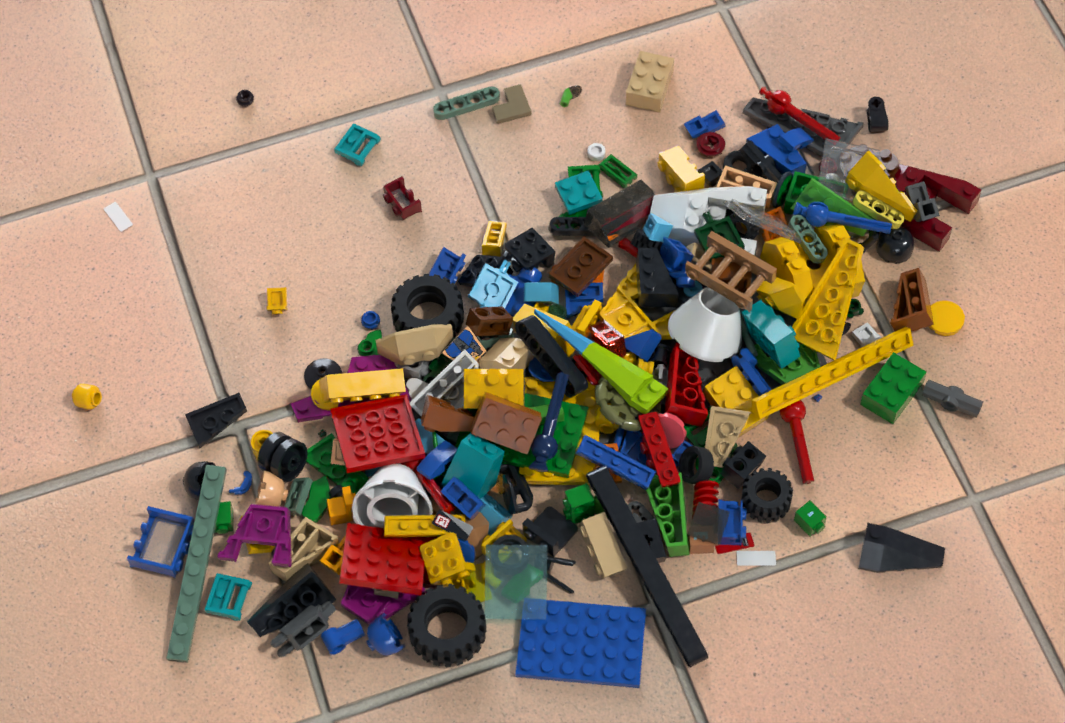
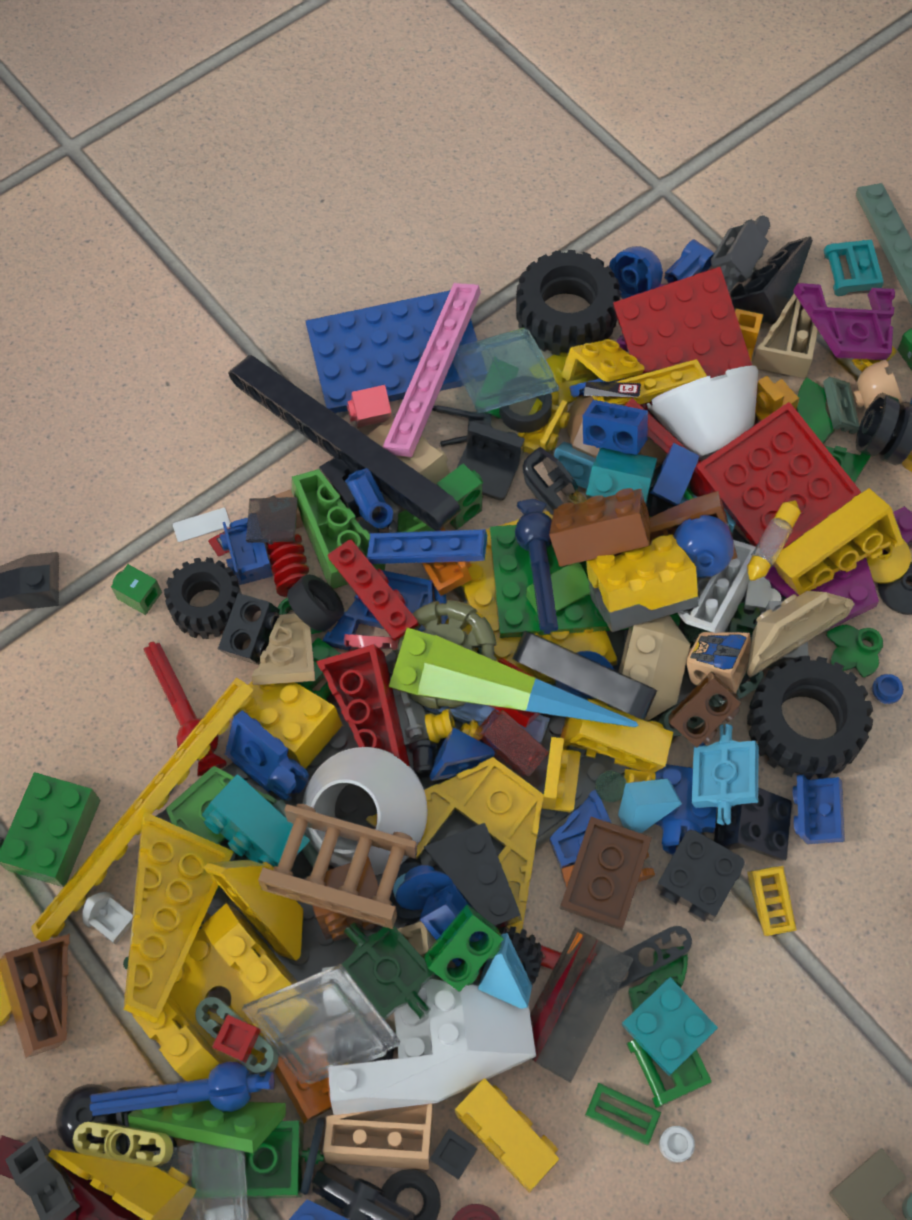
camera: 160 degrees right, 5 degrees up
(400, 395) = (773, 540): none -> piece
(448, 393) = (706, 543): none -> blue cylinder
(563, 595) = (432, 370): none -> bright pink plate
(616, 585) = (369, 406): none -> coral brick
(641, 511) = (368, 498): none -> blue piece
(675, 232) = (456, 944): none -> green brick
(808, 231) = (236, 1038): none -> red tile

